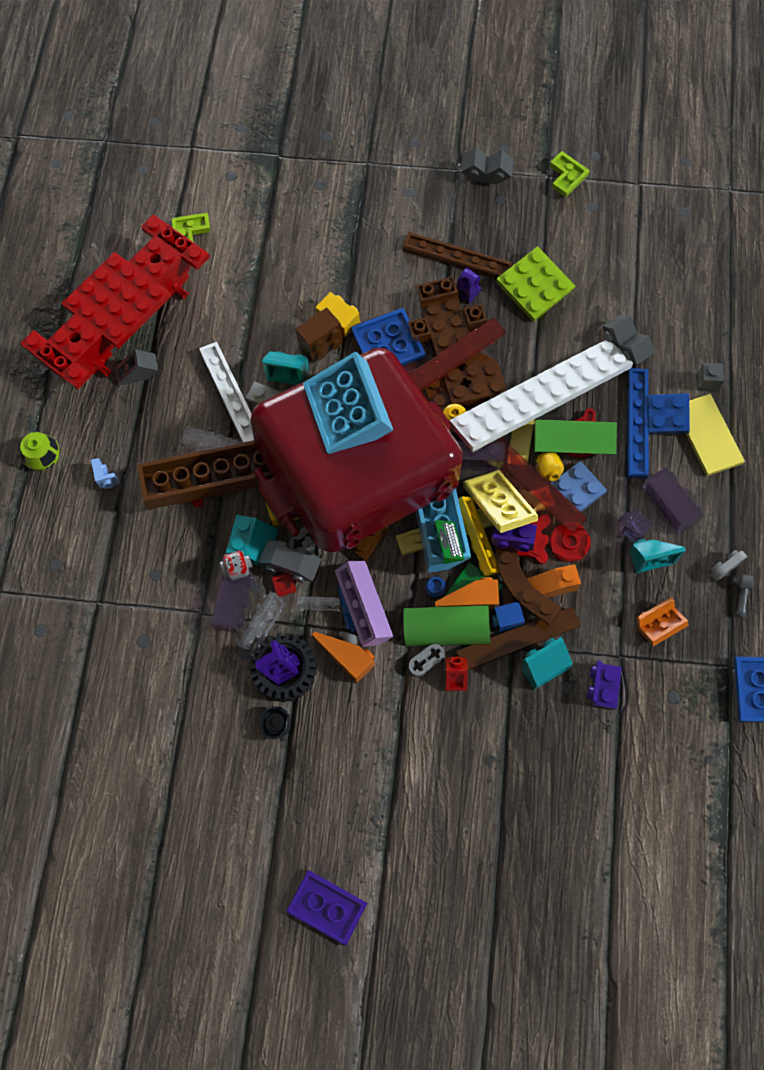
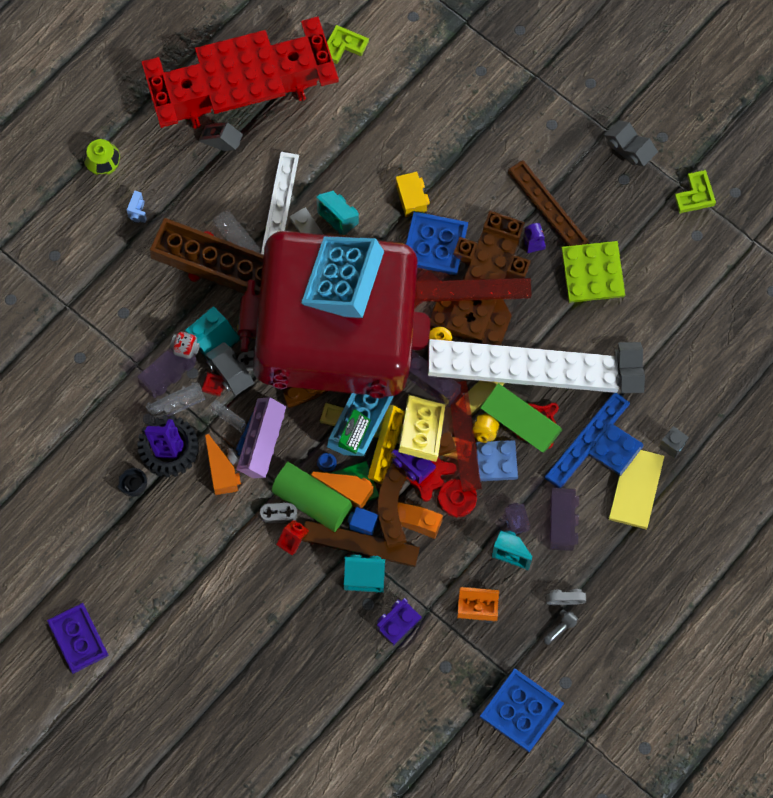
camera: 30 degrees right, 0 degrees up
(319, 335) = (381, 203): reddish brown brick -> none

